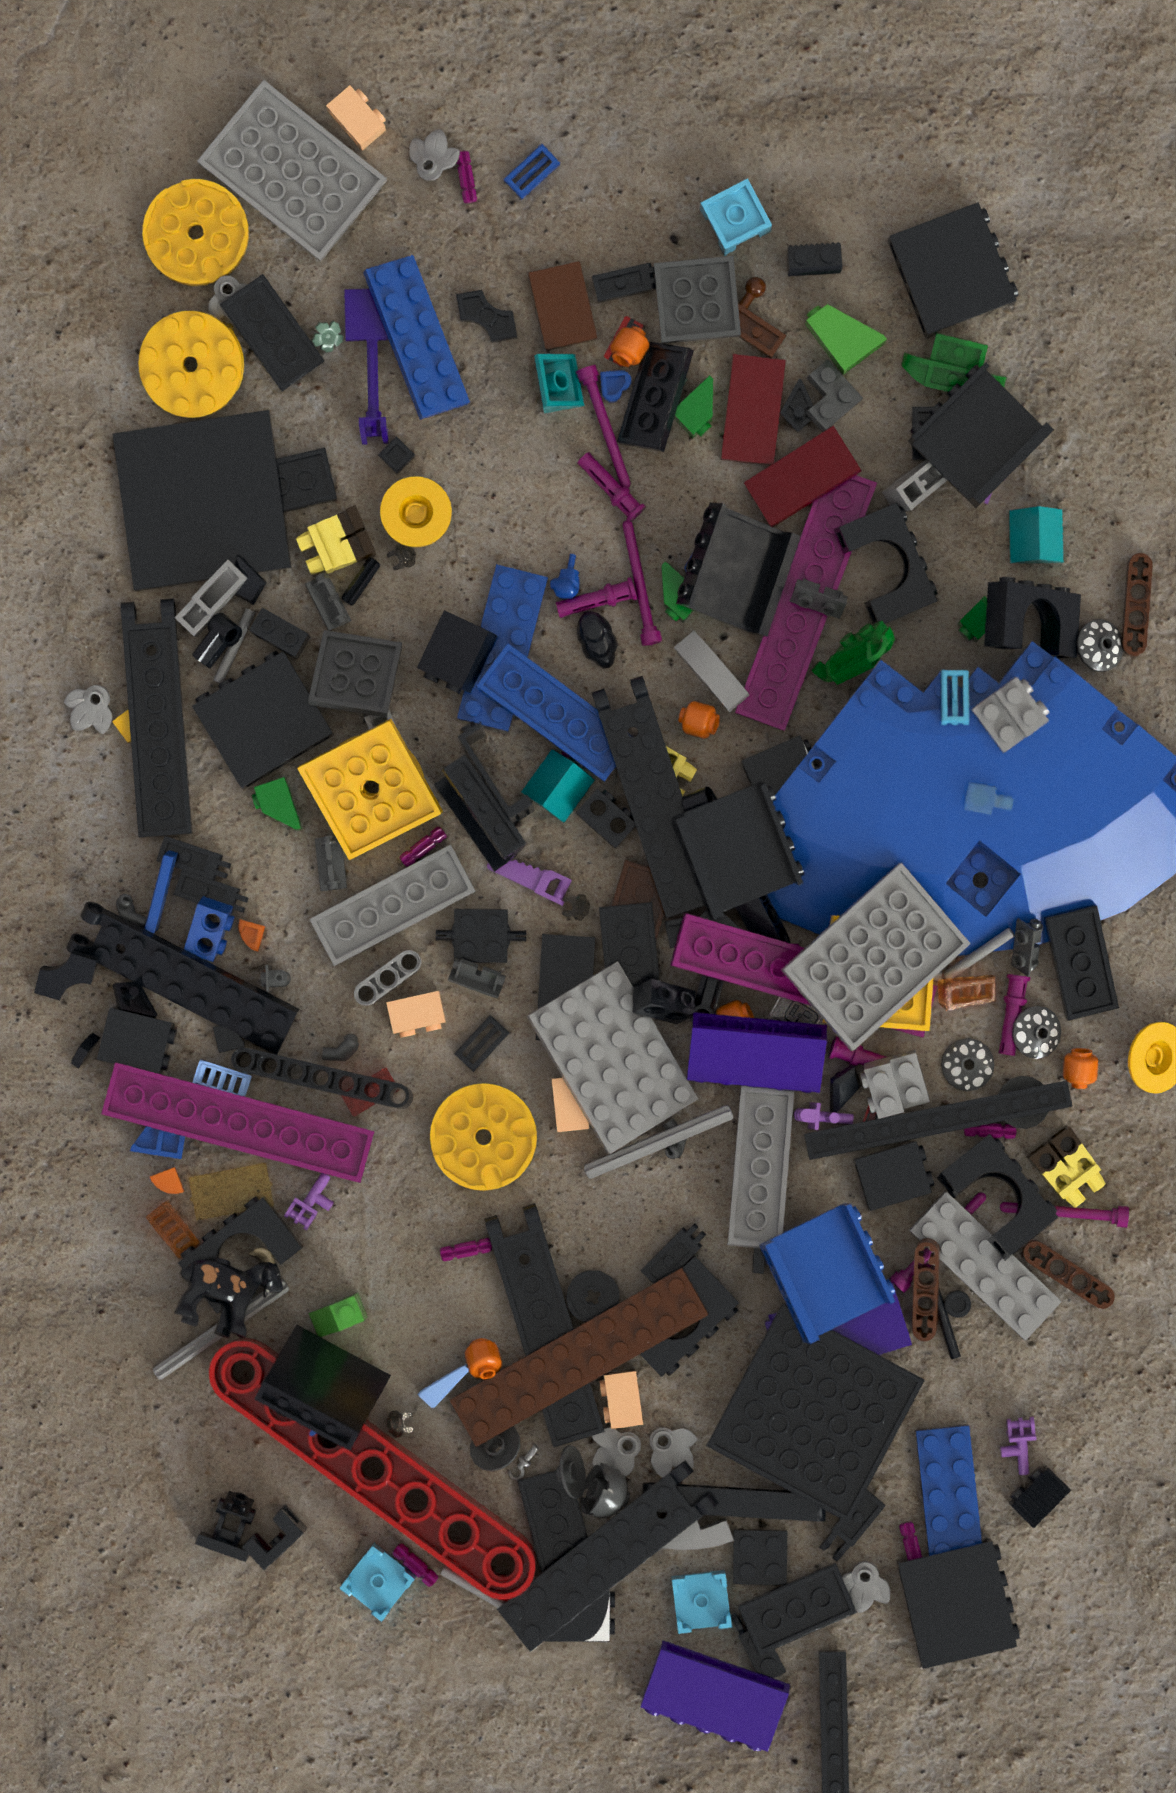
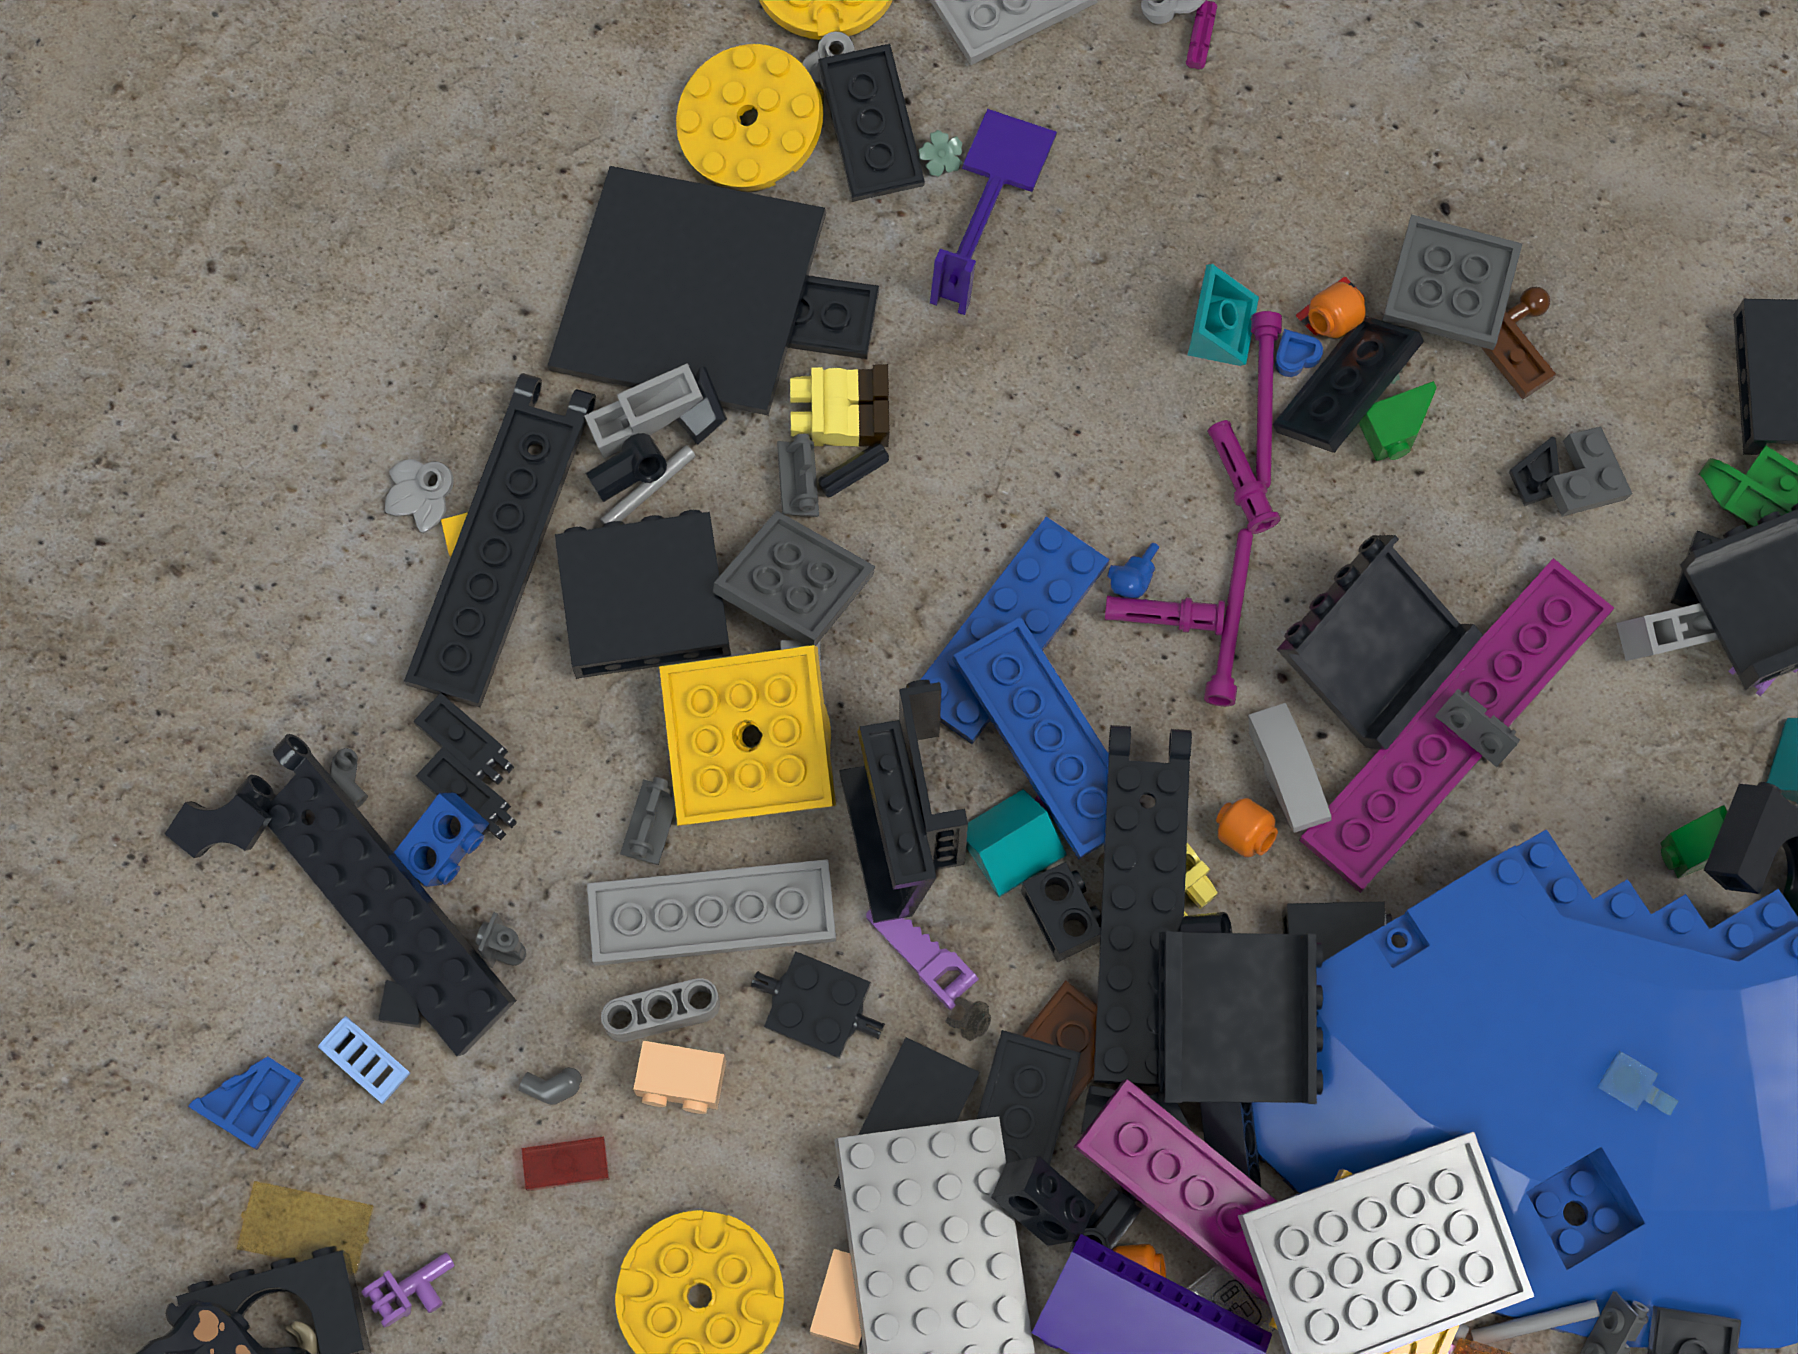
camera: 20 degrees right, 15 degrees down
(84, 1050) = (195, 940): black tile -> none
(133, 999) = (294, 897): black piece -> none
(136, 1041) = (271, 956): black brick -> none
(161, 891) = (399, 762): blue tile -> none
(166, 1206) = (181, 1250): clear orange slope -> none
(168, 1181) = (223, 1174): orange tile -> none
(237, 1122) = (359, 1129): magenta plate -> none
(251, 934) = (499, 874): orange tile -> none
(277, 802) = (613, 709): green slope -> none
(279, 633) = (715, 490): black brick -> none
(309, 1075) = (517, 1126): black beam -> none
(396, 455) = (969, 332): black tile -> none
(405, 555) = (928, 458): clear smoke plate -> none
(415, 511) = (965, 405): yellow hat -> none
(416, 337) = (1057, 196): blue plate -> none
(423, 846) = (789, 849): magenta axle -> none
(456, 652) = (944, 605): black brick -> none
(466, 1060) = (761, 1174): black tile -> none
(476, 309) = (1170, 221): black tile -> none
(485, 981) = (799, 1072): dark grey hinge -> none
(516, 186) = (1268, 80): blue tile -> none
(562, 306) = (1266, 231): reddish brown tile -> none
(597, 638) = (1144, 667): black arm -> none
(624, 282) = (1360, 231): black hinge -> none
(670, 584) = (1269, 664): green slope -> none
(736, 216) = (1543, 200): medium azure panel -> none
(753, 409) = (1474, 454): dark red tile -> none
(802, 476) = (1513, 560): dark red tile -> none
(814, 259) = (1628, 294): black brick -> none
(843, 337) = (1633, 405): bright green slope -> none
(856, 653) = (1508, 817): green plate -> none
(914, 588) = (1613, 670): black arch -> none
(954, 719) = (1630, 948): medium azure tile -> none
(1011, 713) = (1718, 974): light grey plate -> none

